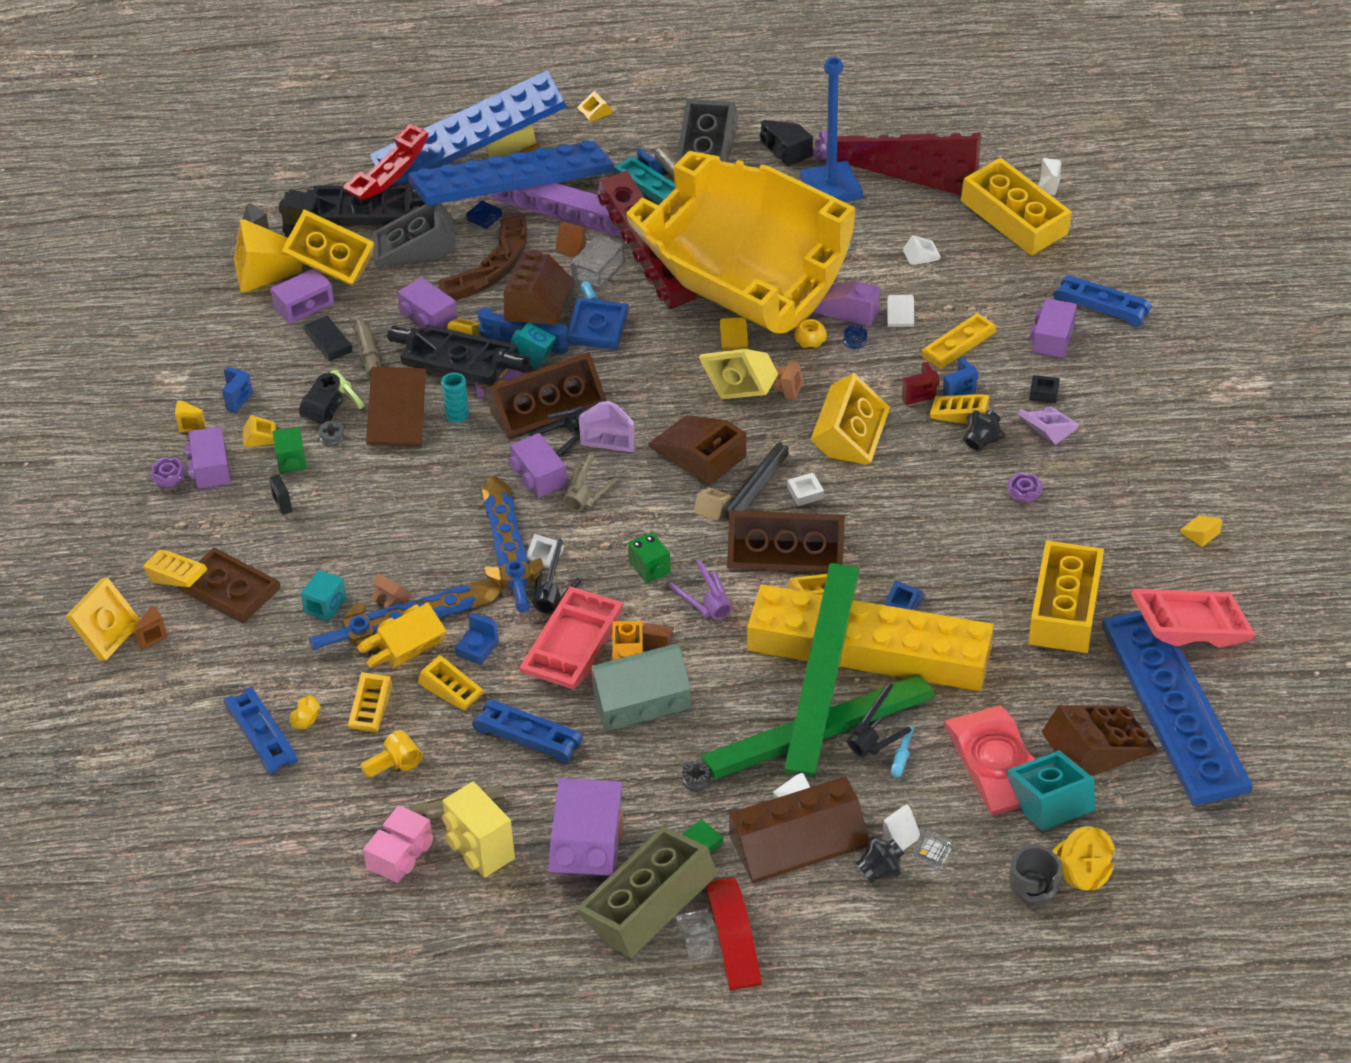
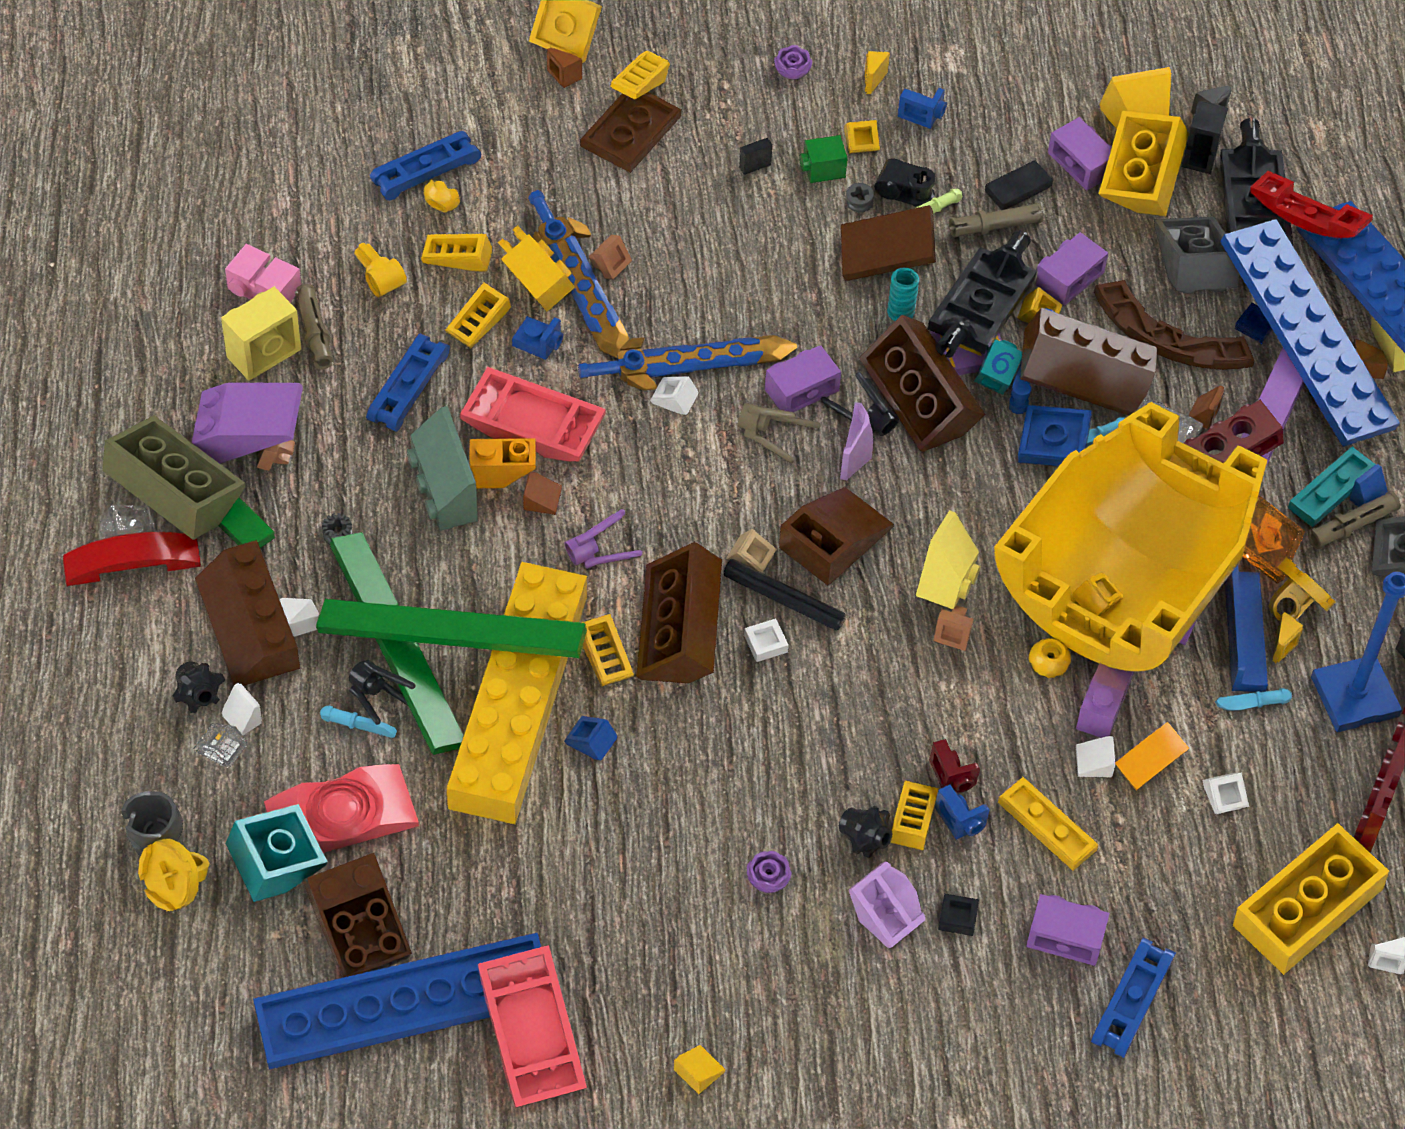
camera: 85 degrees right, 10 degrees up
(208, 457) = (813, 92): medium lavender brick -> none
(323, 595) = (604, 201): teal brick -> none
(548, 597) = (600, 394): black plant -> none
(649, 557) = (653, 484): green brick -> none
(850, 421) = (880, 690): yellow slope -> none
(858, 332) = (1052, 699): clear blue bush -> none
(895, 276) = (1151, 756): none -> light orange slope
(1066, 596) = (570, 893): yellow brick -> none

